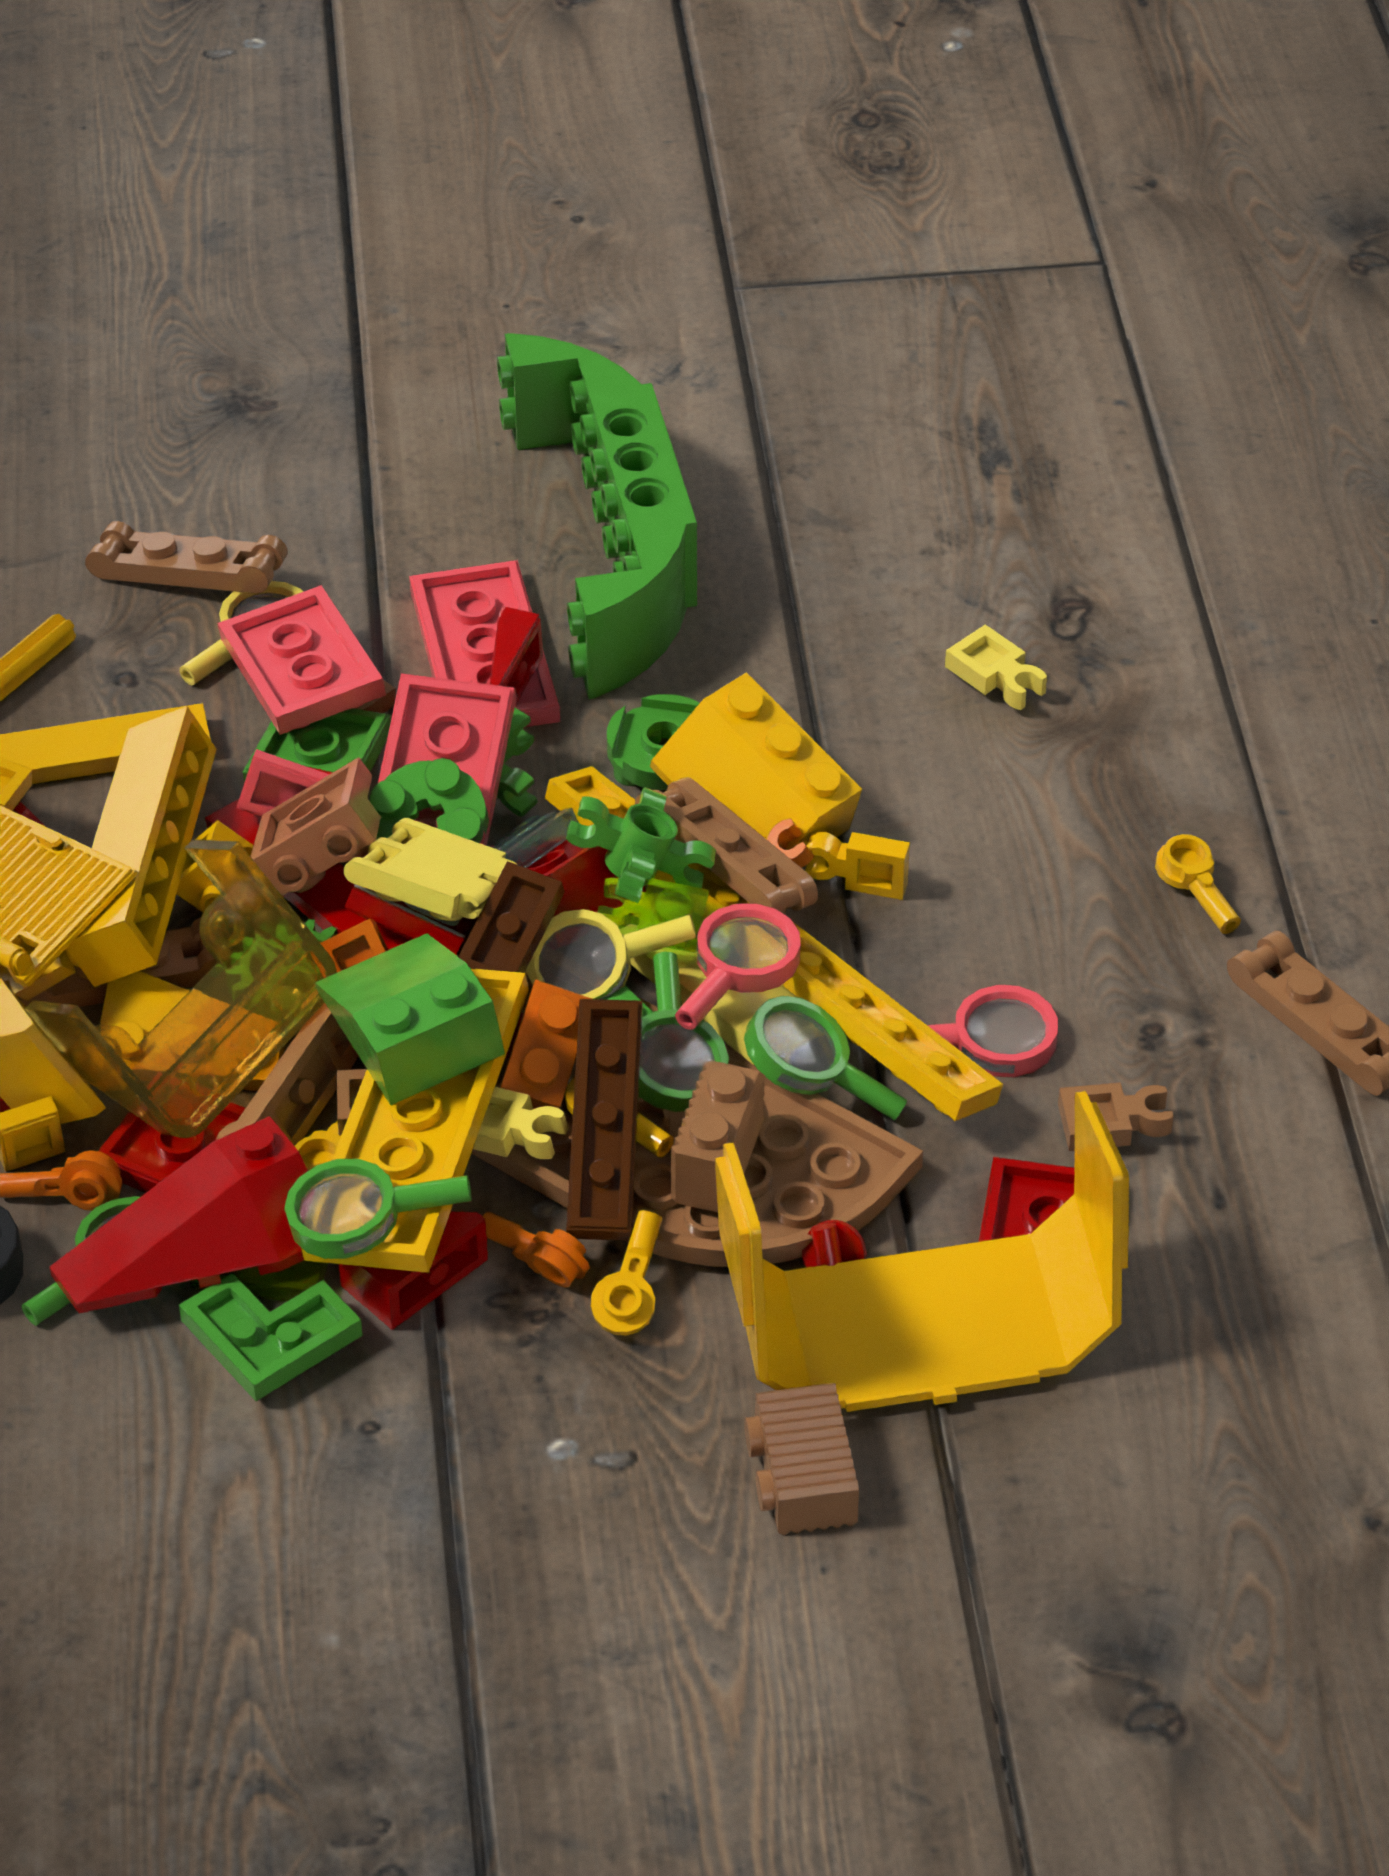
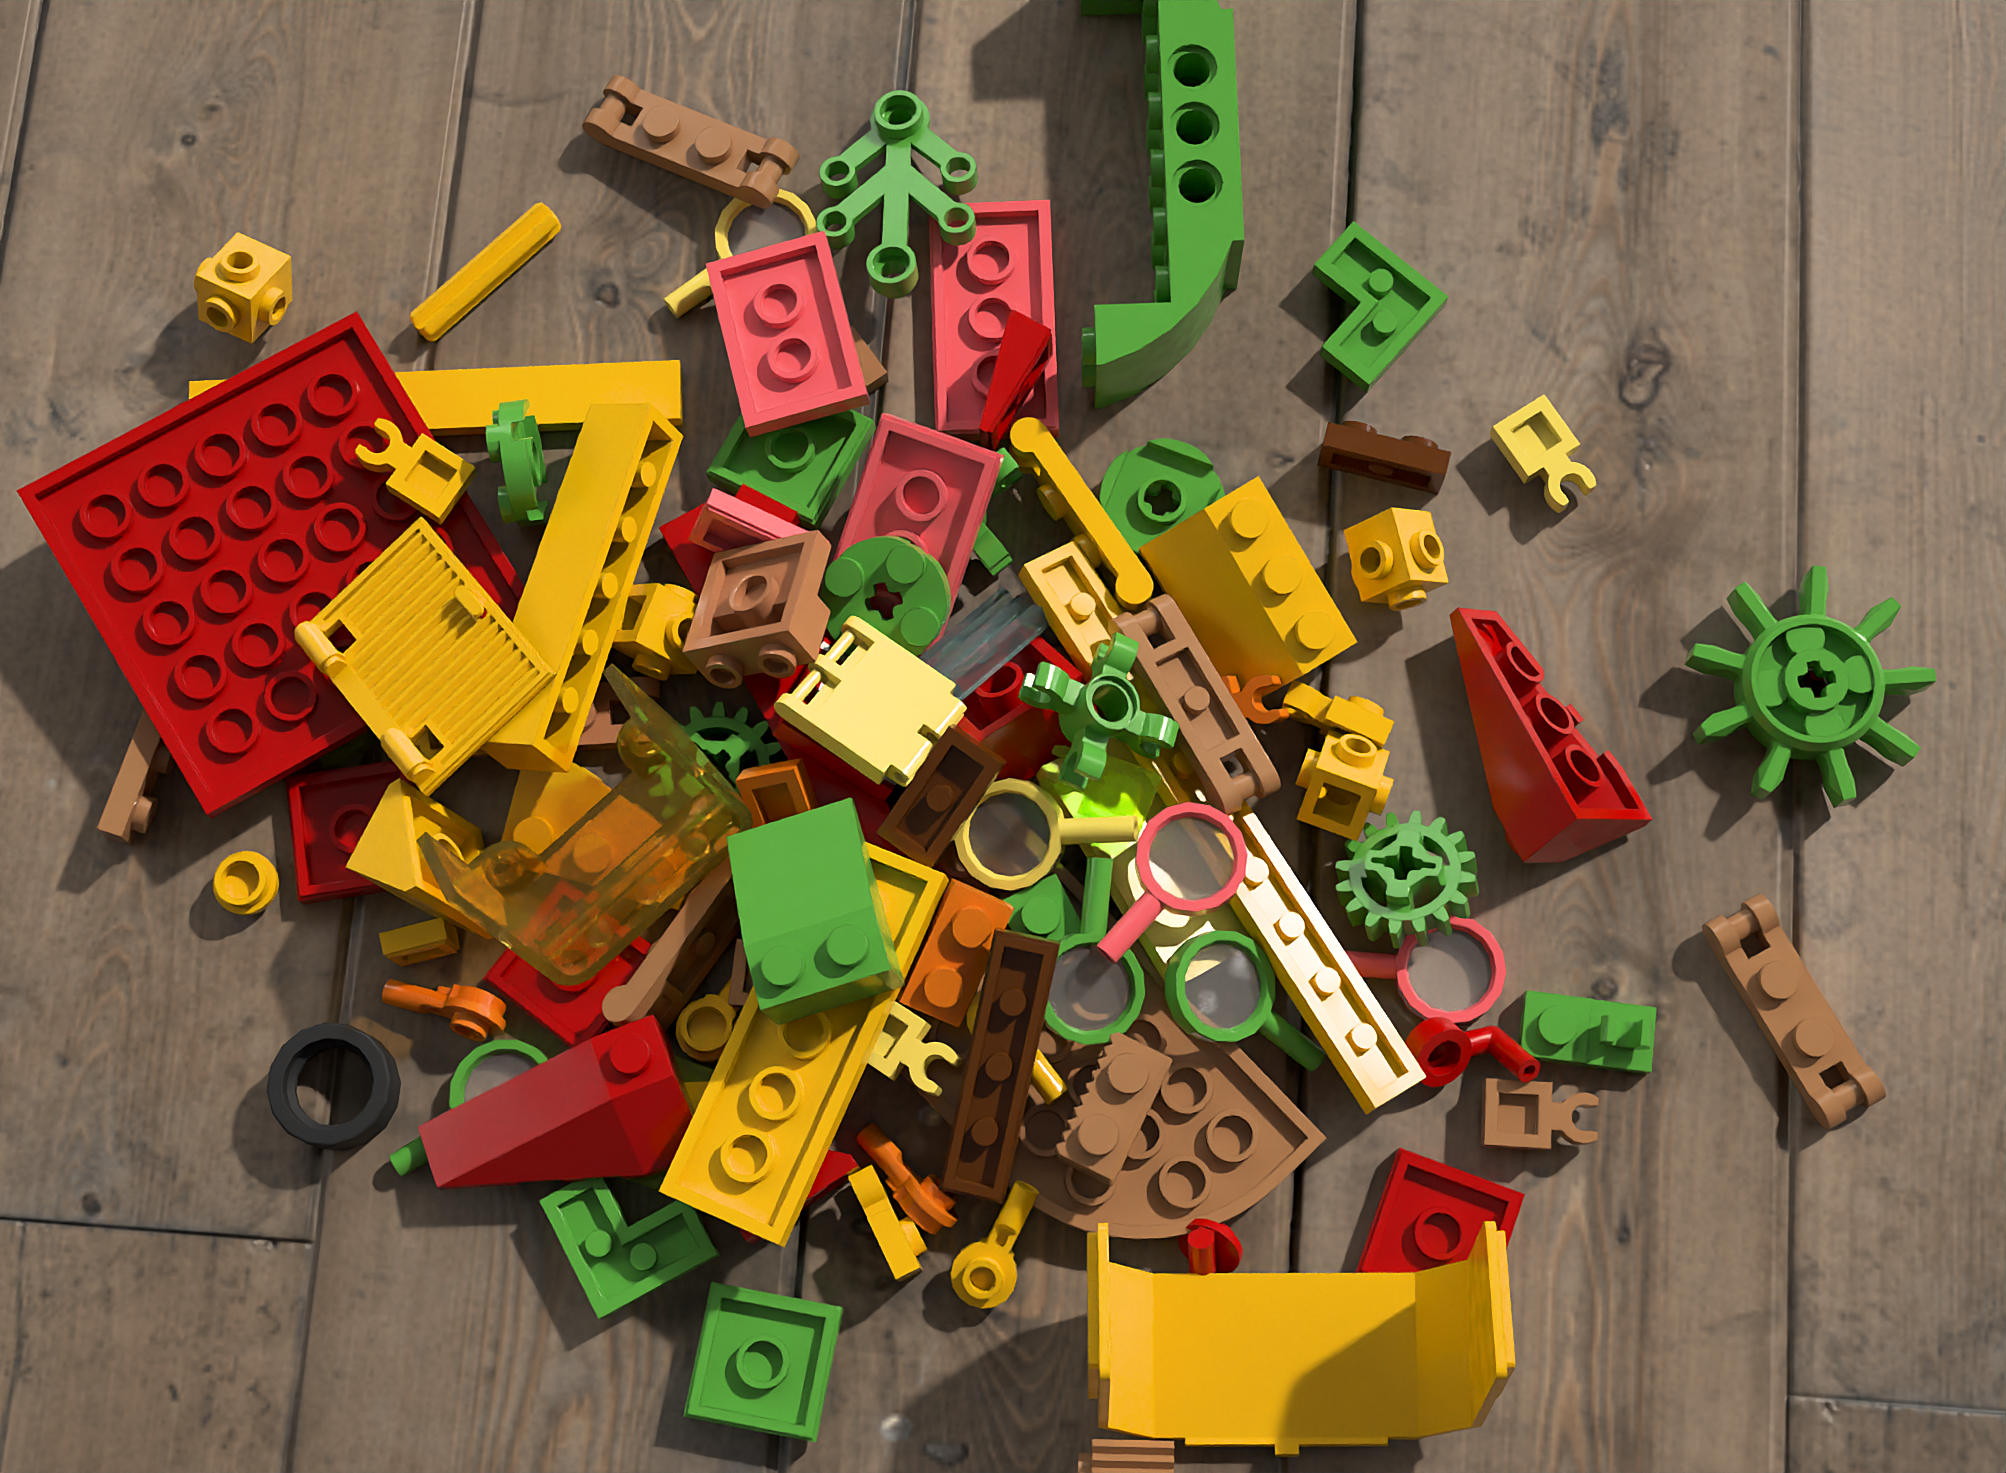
camera: 15 degrees right, 30 degrees up
(66, 754) = (518, 445): none -> bright green plate
(353, 1207) = (710, 1167): piece -> none
(373, 527) = (896, 186): none -> bright green plant
(422, 1403) = (763, 1362): none -> bright green plate
(528, 1285) = (897, 1238): none -> yellow plate
(580, 743) = (1068, 497): none -> yellow plate
(828, 588) = (1389, 303): none -> bright green plate
(851, 899) = (1343, 784): none -> yellow brick
(855, 685) = (1403, 462): none -> reddish brown plate
(882, 742) = (1396, 558): none -> yellow brick
(949, 957) = (1410, 881): none -> bright green gear
(1026, 1077) = (1446, 1050): none -> red plate
(1046, 868) = (1538, 766): none -> red wedge
(1145, 1055) = (1587, 1032): none -> bright green plate
(1188, 865) = (1691, 778): yellow plate -> none
(1273, 787) = (1790, 717): none -> bright green gear

